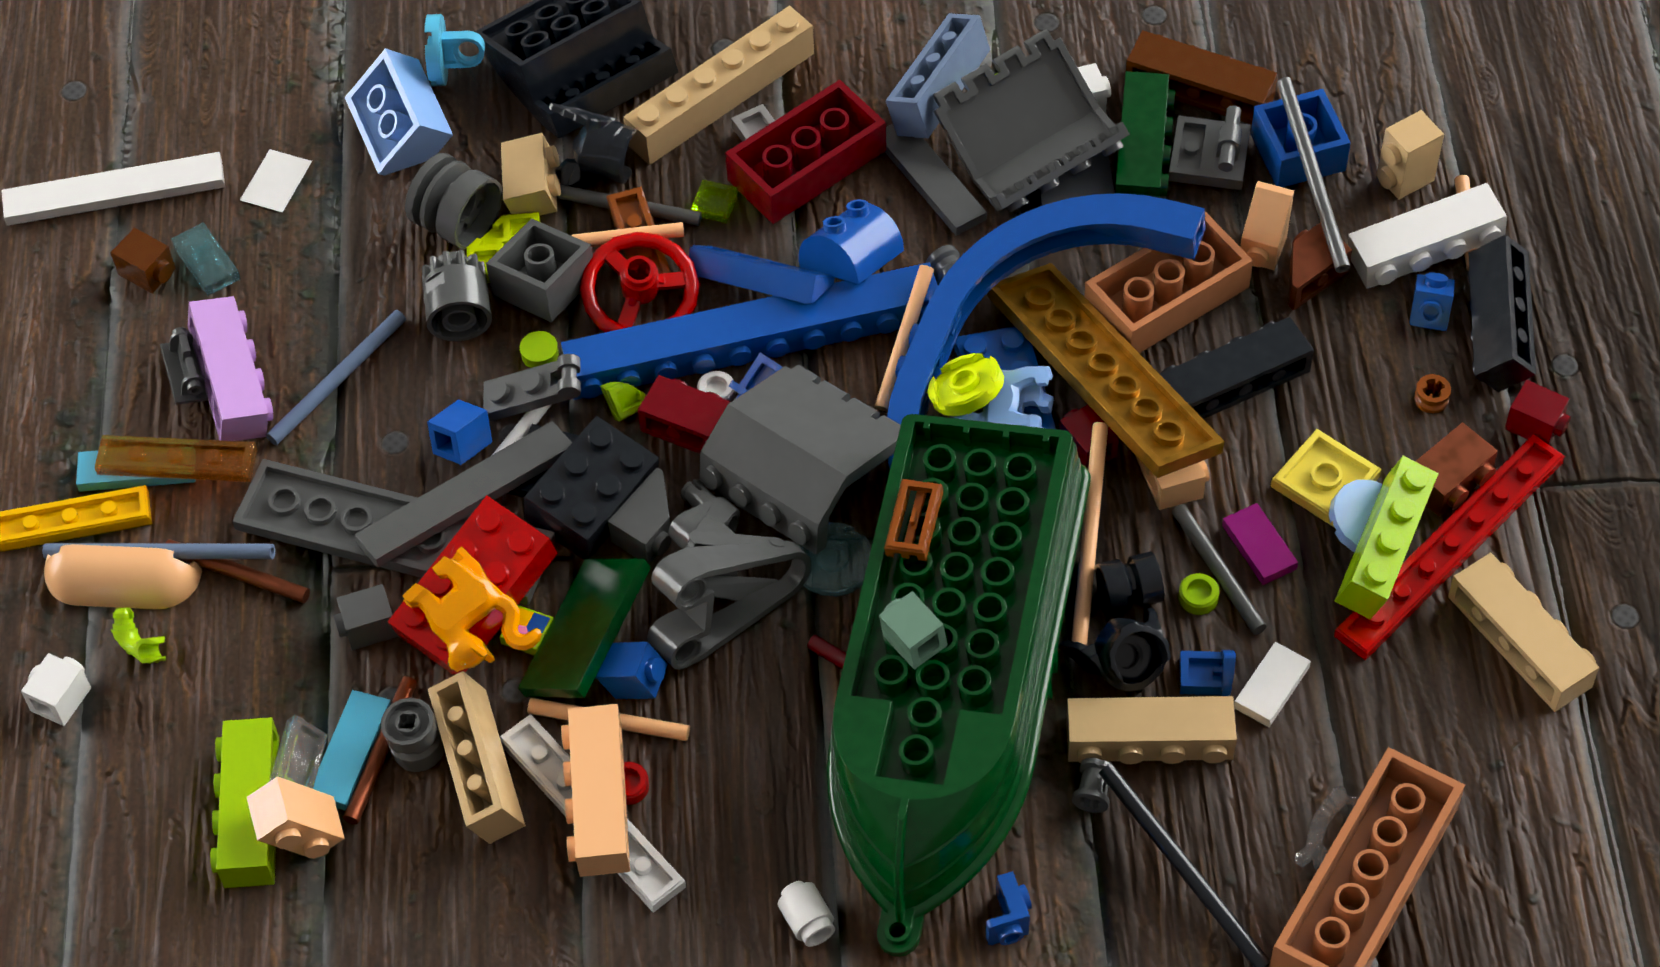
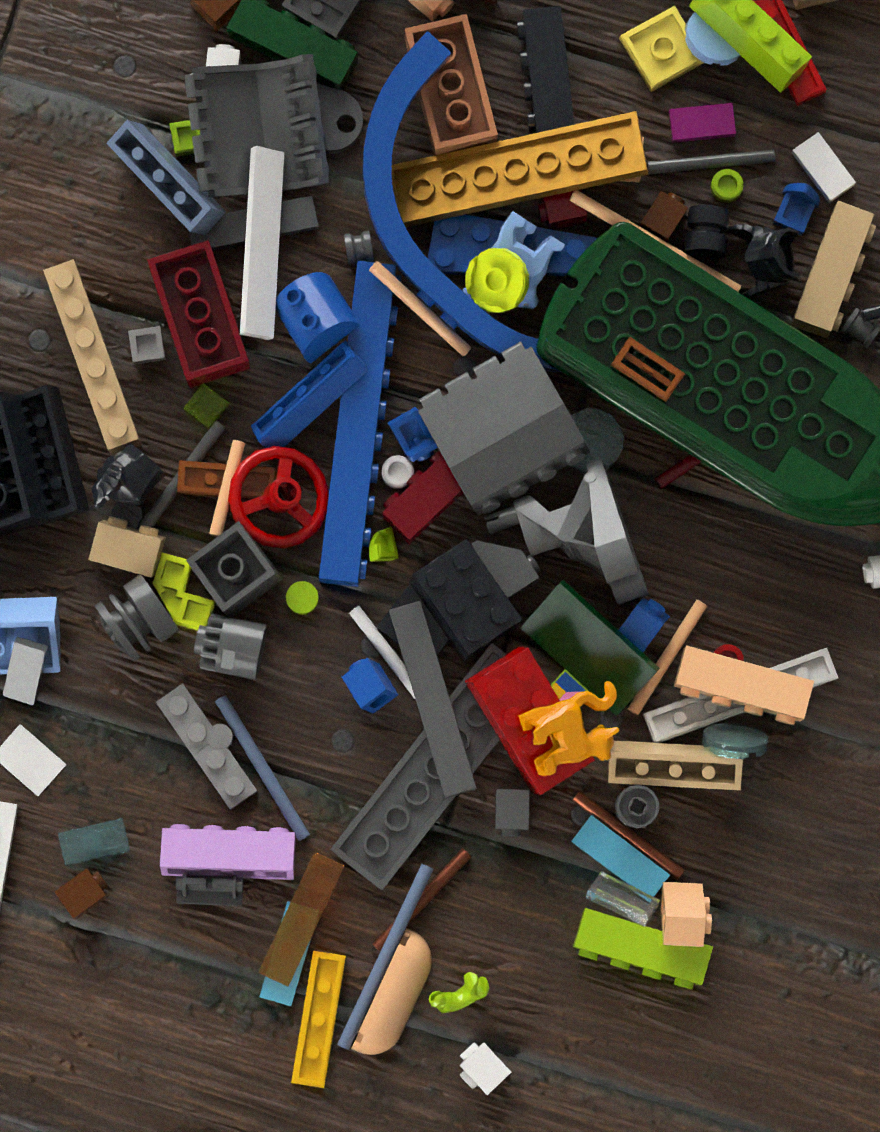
camera: 75 degrees left, 25 degrees up
(343, 321) = (207, 745): none -> light grey hinge
(364, 134) = (25, 670): none -> tile
(529, 806) = (734, 740): none -> clear light blue tile
(532, 388) = (350, 616): dark grey plate -> none
(907, 173) = (262, 243): none -> white tile
(912, 629) = (749, 407): sand green brick -> none
(1125, 534) = (664, 215): none -> reddish brown brick

